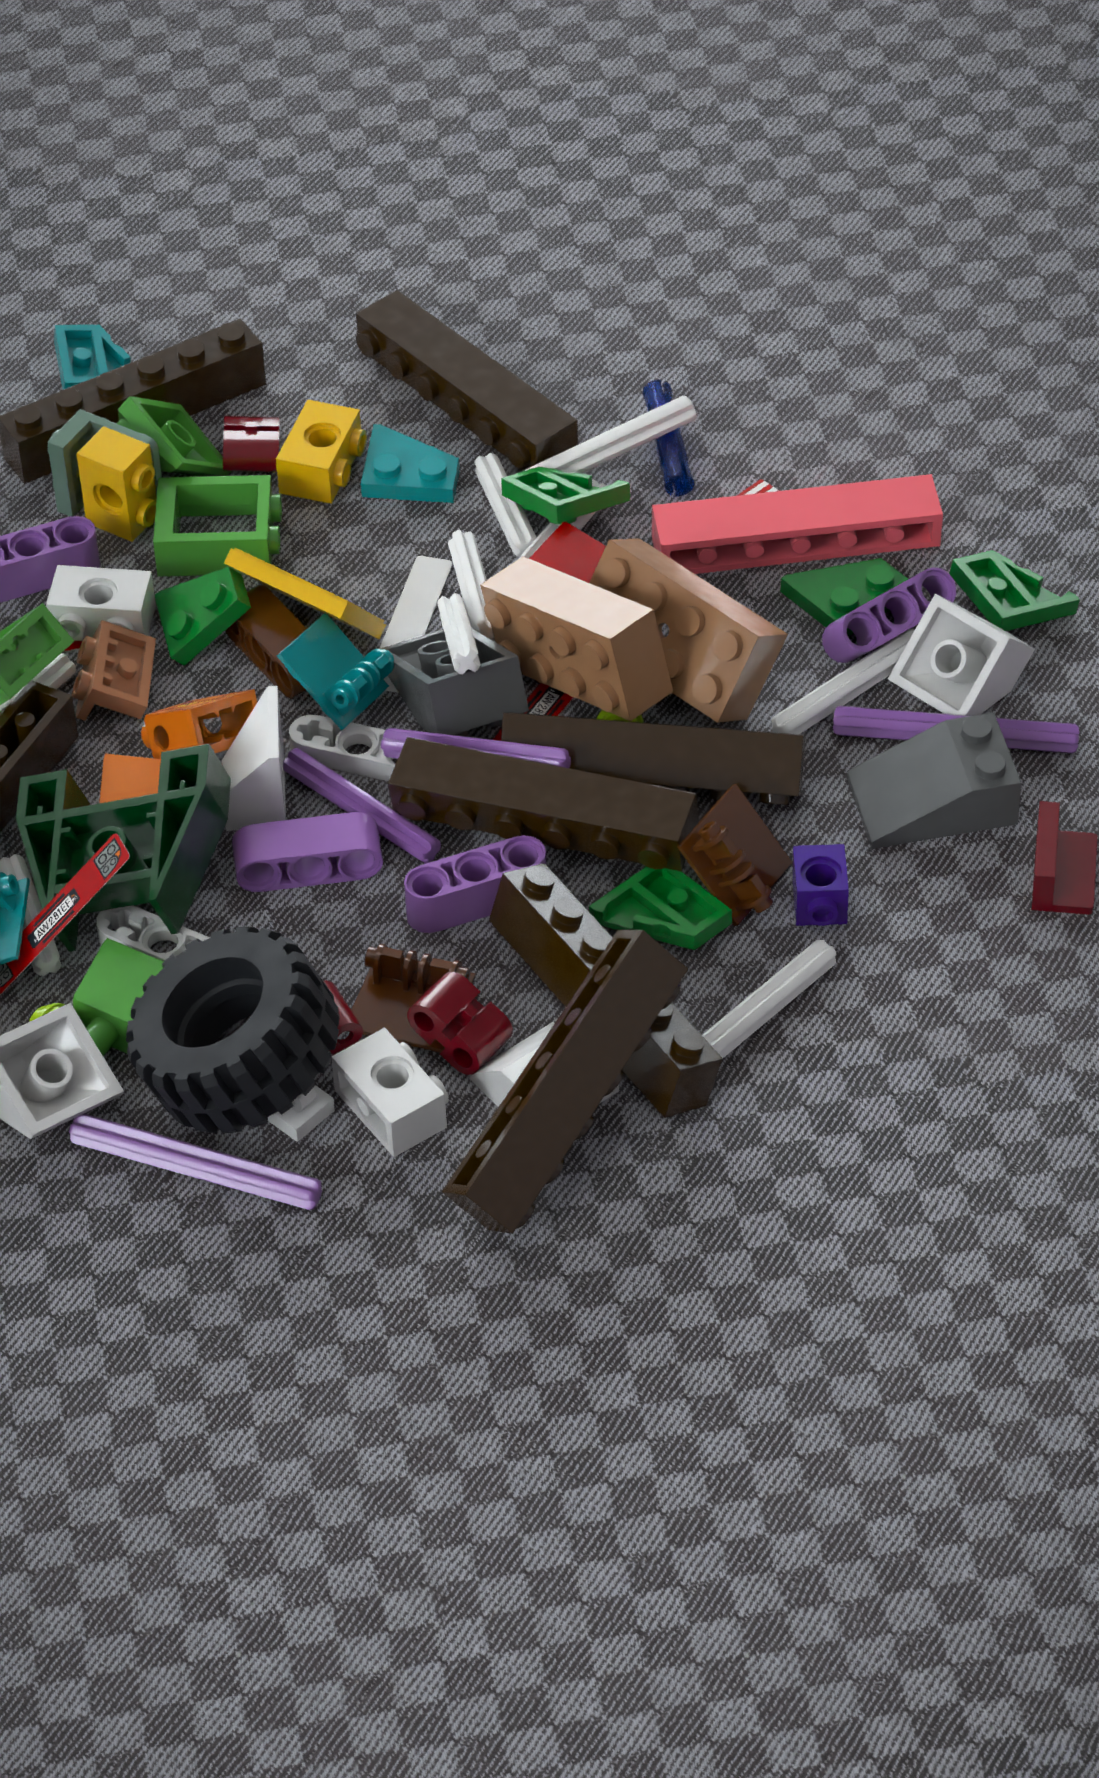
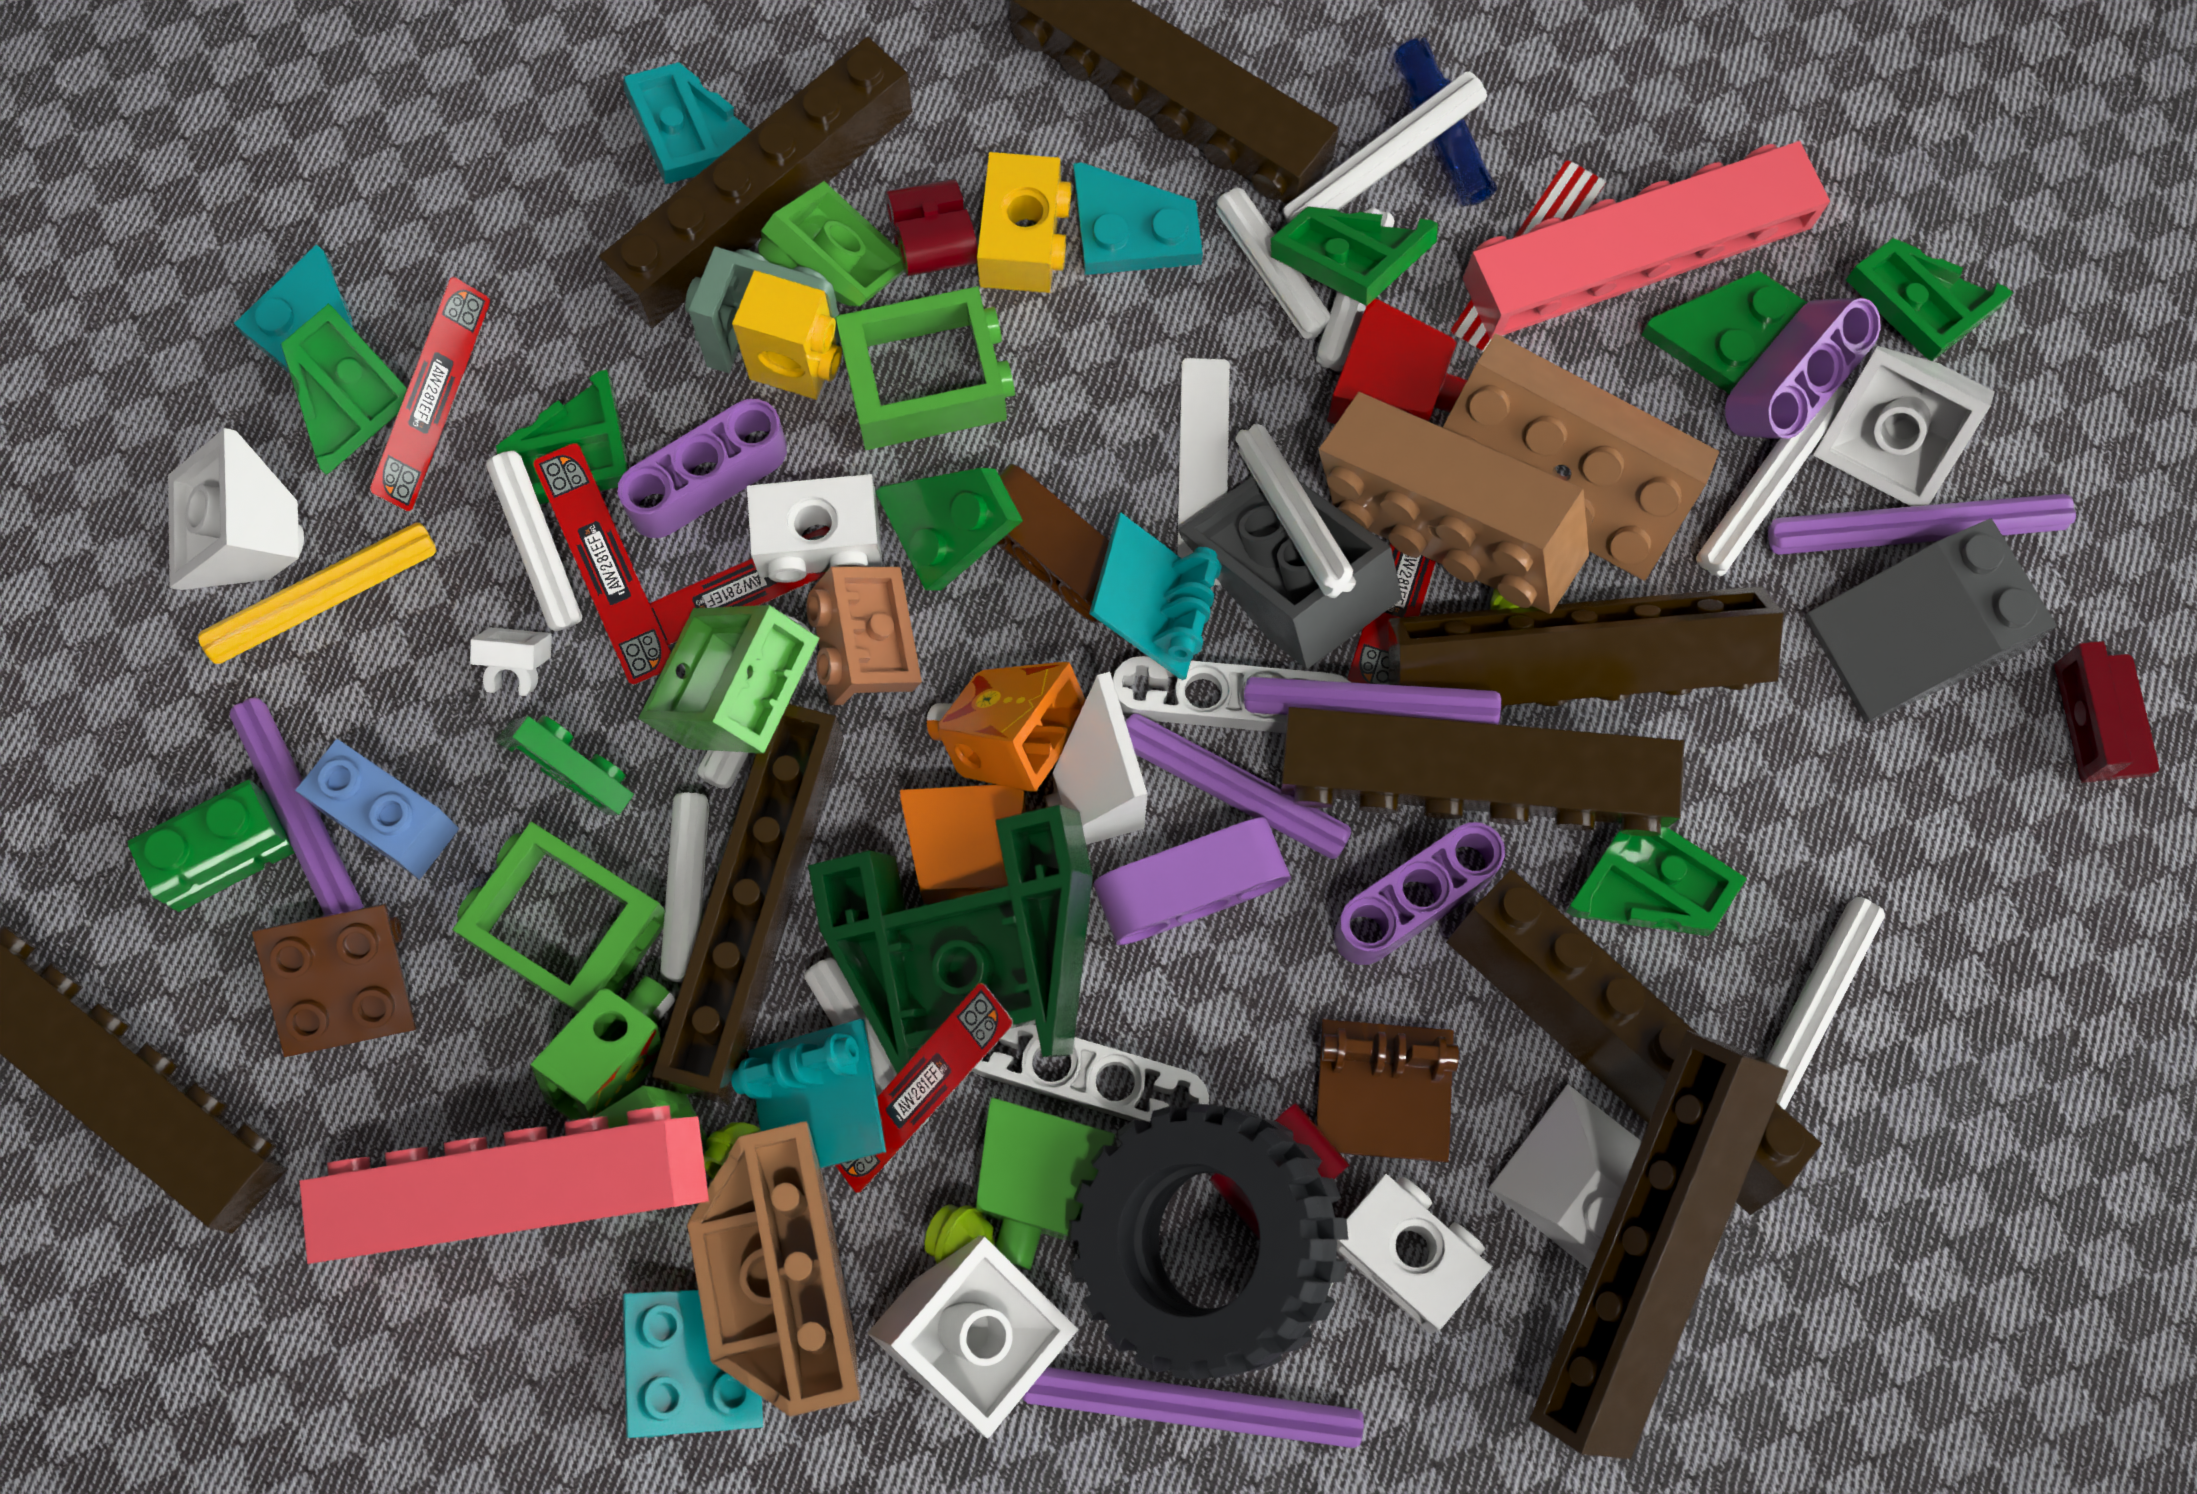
camera: 15 degrees left, 25 degrees up
(305, 592) = (1077, 472): yellow tile -> none
(460, 1023) = (1468, 1132): dark red piece -> none
(470, 576) = (1270, 398): white axle -> none
(735, 855) = (1731, 796): reddish brown hinge -> none
(820, 885) = (1855, 793): dark purple brick -> none

